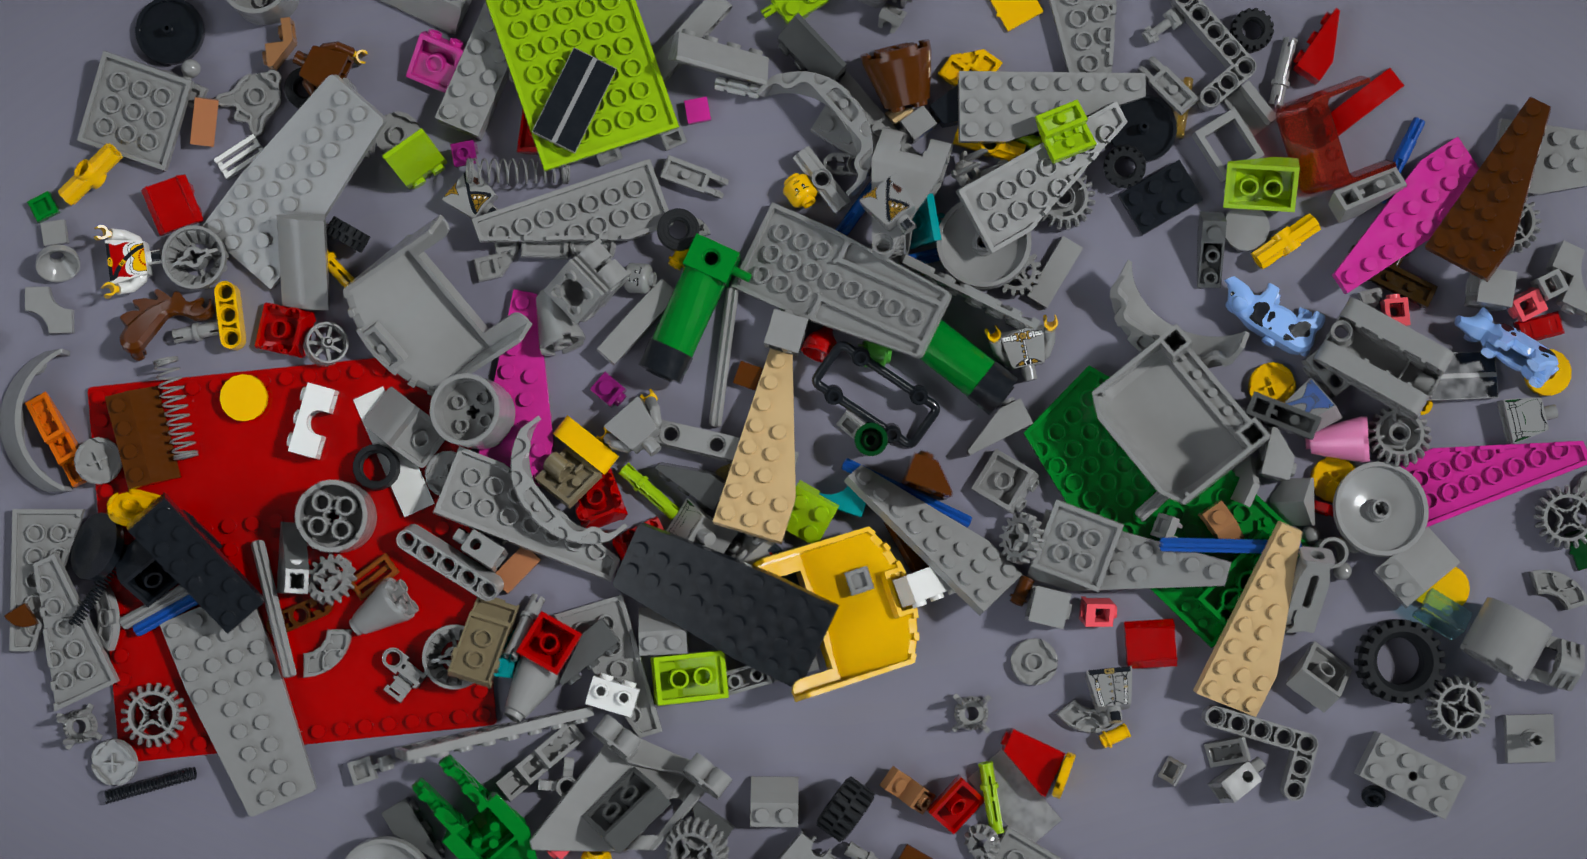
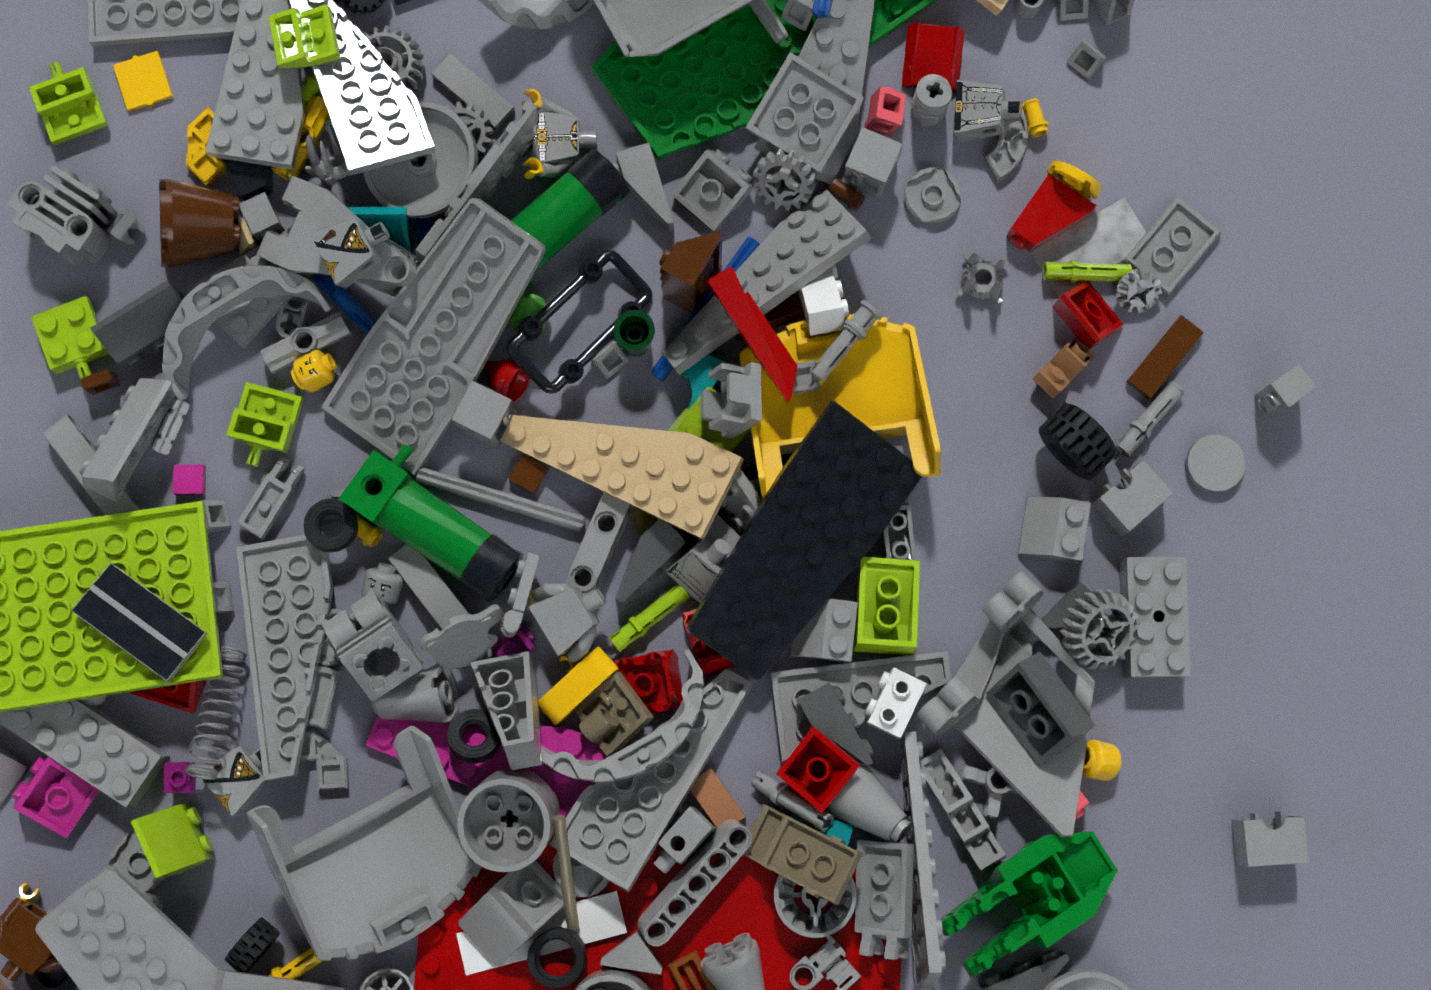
camera: 85 degrees left, 5 degrees down
(387, 525) = (633, 955): none -> light grey slope
(440, 462) = (566, 872): none -> dark tan bar
(461, 710) = (884, 897): none -> light grey tile
(543, 362) = (469, 753): none -> black tyre
(562, 397) = (512, 701): none -> light grey wedge
(603, 351) = (464, 639): none -> light grey tile
(646, 387) = (519, 596): none -> light grey hinge
(754, 160) = (264, 420): none -> lime plate
(762, 25) = (100, 382): none -> reddish brown tile
(825, 531) = (739, 402): none -> light grey panel
(885, 536) = (755, 331): none -> red wedge
(901, 615) = (854, 330): none -> light grey pin
(1110, 656) = (931, 100): none -> light grey piece

